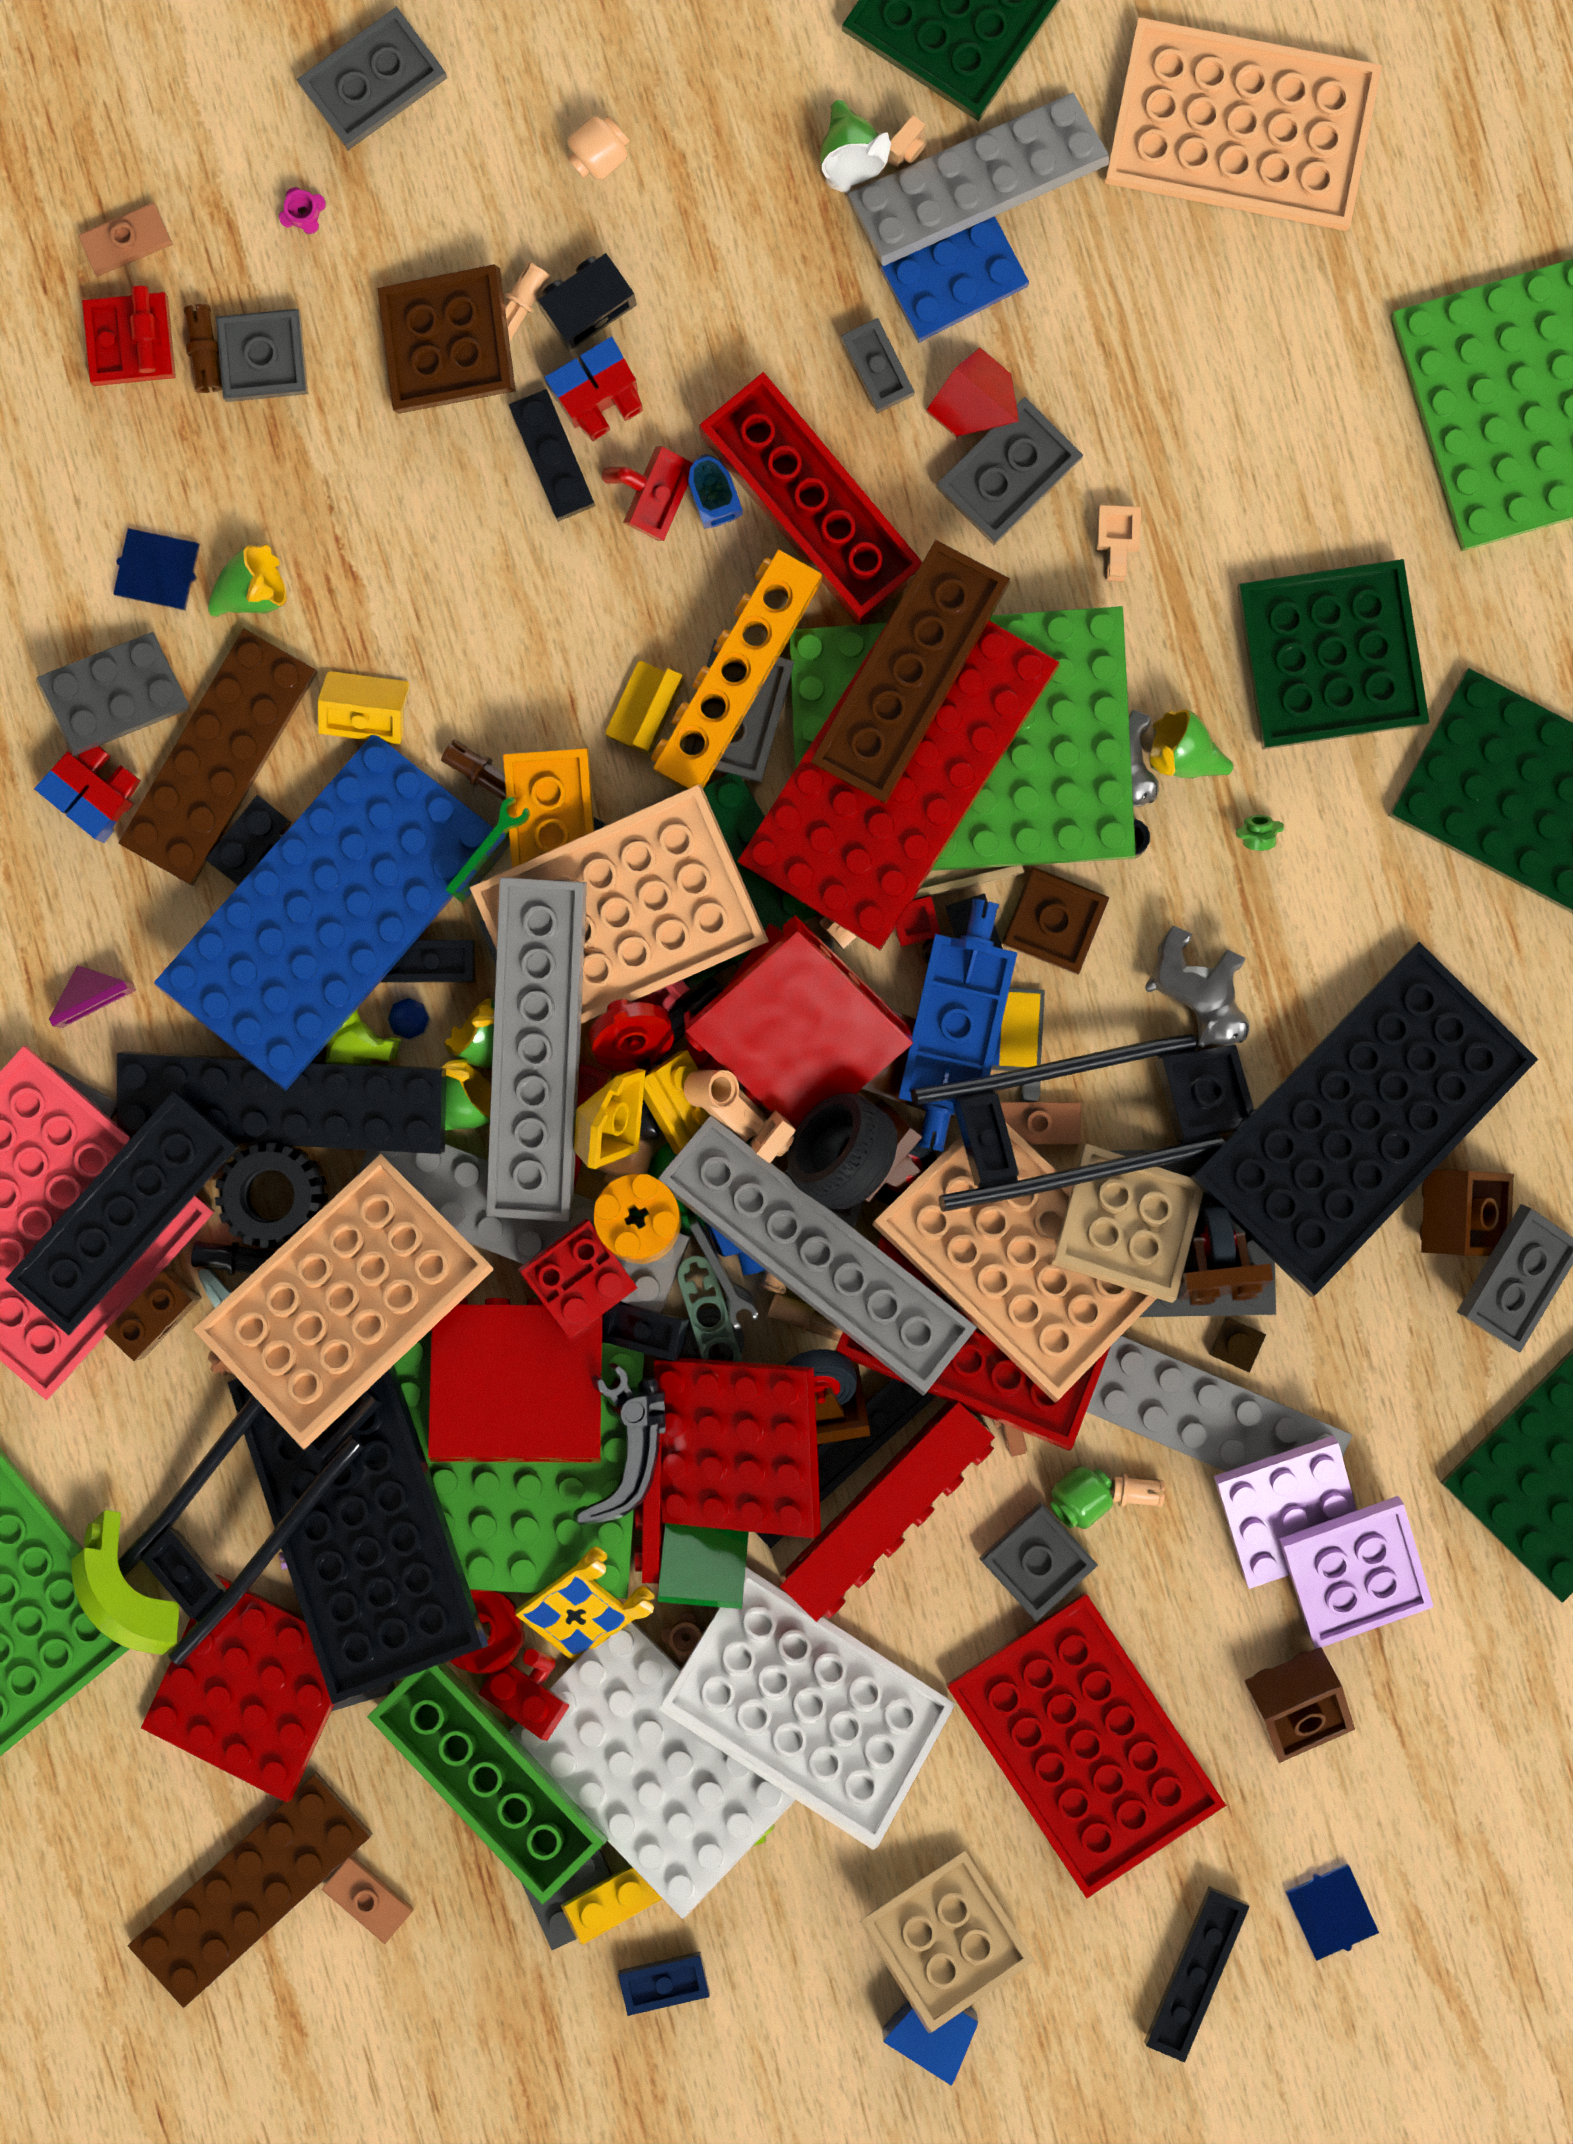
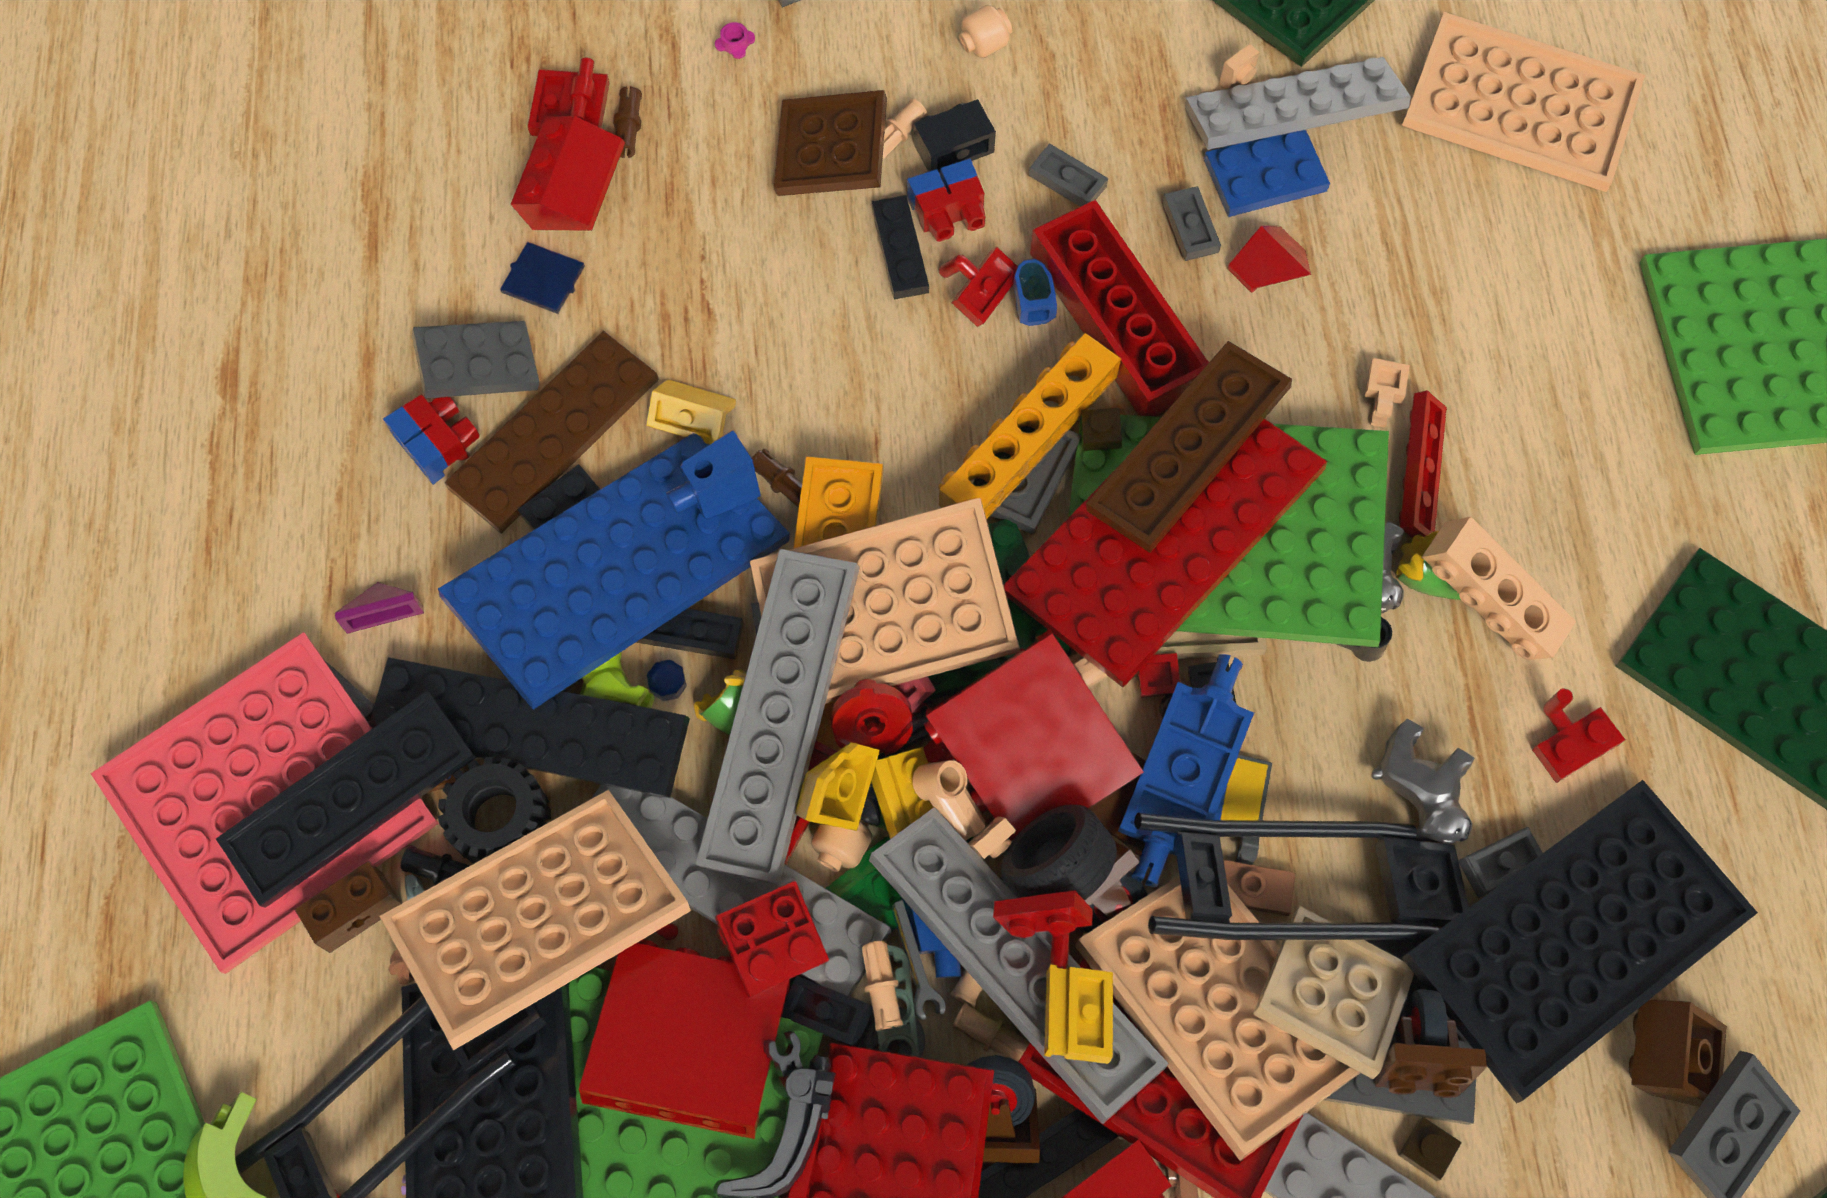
camera: 10 degrees right, 20 degrees down
(125, 239) = (586, 38): nougat plate -> none
(154, 441) = (567, 175): none -> red slope
(249, 583) = (616, 295): hat -> none
(262, 355) = (674, 134): dark grey plate -> none
(428, 799) = (716, 478): none -> blue torso
(466, 1096) = (700, 755): hat -> none
(488, 853) = (774, 535): green flag -> none
(614, 1211) = (849, 869): light orange brick -> none
(644, 707) = (940, 453): yellow panel -> none
(692, 1300) = (881, 985): none -> light nougat axle
(727, 329) = (1067, 176): none -> dark grey plate
(814, 654) = (1101, 429): none -> dark brown plate
(848, 1213) = (1052, 912): none -> red plate
(851, 149) = (1195, 66): hat -> none
(884, 1301) = (1079, 1014): none -> yellow plate
(1009, 472) = (1295, 320): dark grey plate -> none
(1055, 920) = (1291, 701): reddish brown tile -> none
(1167, 627) = (1423, 465): none -> red plate
(1259, 832) = (1494, 654): bright green plate -> none
(1282, 1052) = (1499, 861): none -> dark grey plate
(1308, 790) = (1498, 589): none -> light nougat brick
(1333, 654) = (1576, 514): dark green plate -> none
(1352, 909) = (1575, 742): none -> red plate

